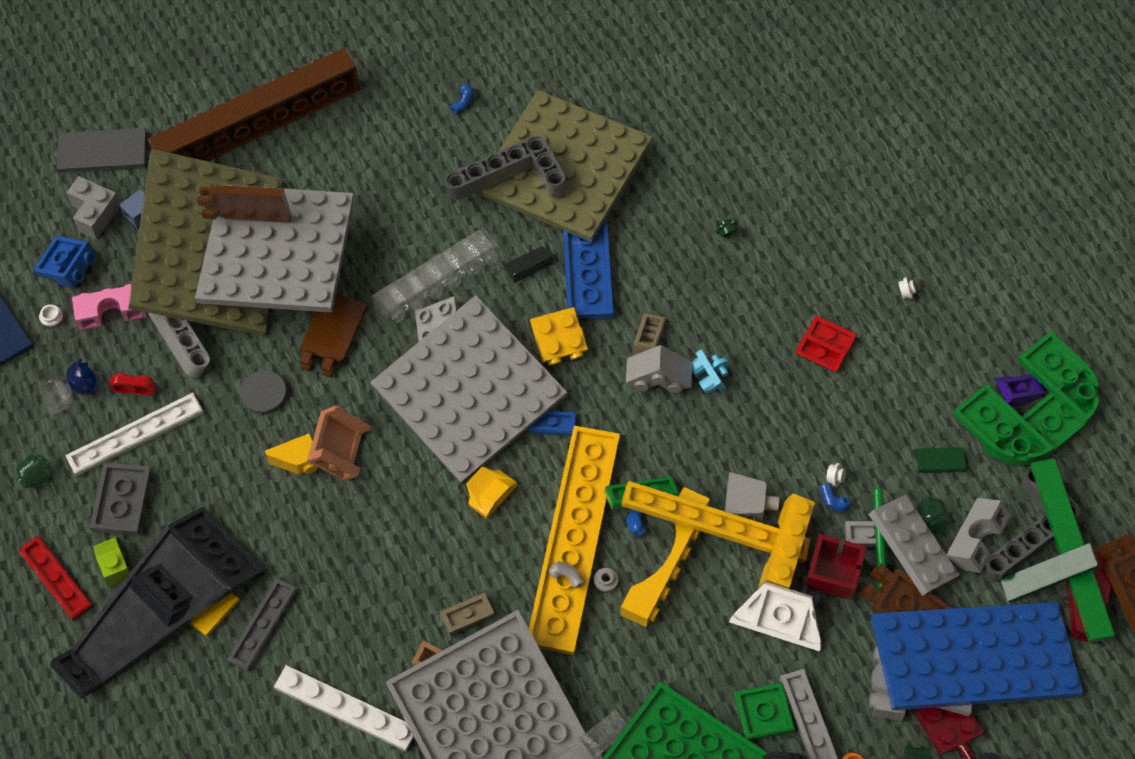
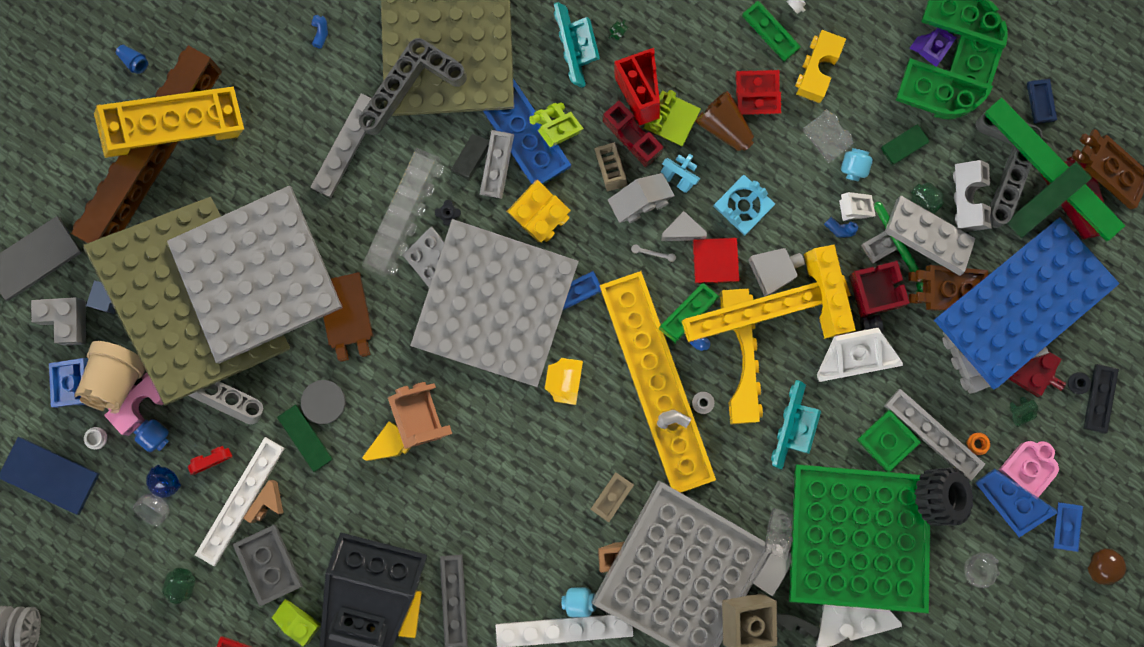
camera: 30 degrees left, 20 degrees up
(98, 337) = (151, 435): none -> blue head
(99, 264) = (108, 376): none -> tan piece
(160, 441) = (269, 498): none -> medium nougat slope
(226, 413) = (305, 438): none -> dark green tile
(244, 203) = (203, 255): reddish brown tile -> none
(289, 92) = (168, 120): none -> yellow plate
(292, 43) = (132, 59): none -> blue cone
(373, 688) = (578, 602): none -> medium azure head
(412, 205) = (342, 150): none -> light grey plate
(480, 291) = (441, 212): none -> black plate
(546, 279) = (496, 164): none -> light grey tile
(620, 277) = (559, 129): none -> lime plate
(629, 417) = (636, 249): none -> light grey hinge
(681, 420) = (683, 229): none -> light grey slope
(681, 648) = (798, 426): none -> teal bracket
(682, 311) = (641, 144): none -> dark red arch
(683, 219) = (578, 43): none -> teal bracket
(696, 464) = (715, 260): none -> red tile
(718, 277) = (639, 85): none -> red wedge
(731, 324) = (675, 118): none -> lime hinge
(763, 412) = (733, 216): none -> medium azure piece
(778, 350) = (726, 122): none -> reddish brown cone
(836, 474) = (832, 206): white plate -> none
(858, 485) = (856, 206): none -> white slope
(869, 413) = (828, 136): none -> clear bracket
(870, 300) = (771, 31): none -> green tile
(881, 450) = (856, 164): none -> medium azure head
(910, 337) = (825, 48): none -> yellow arch
(1100, 492) = (1041, 101): none -> dark blue tile

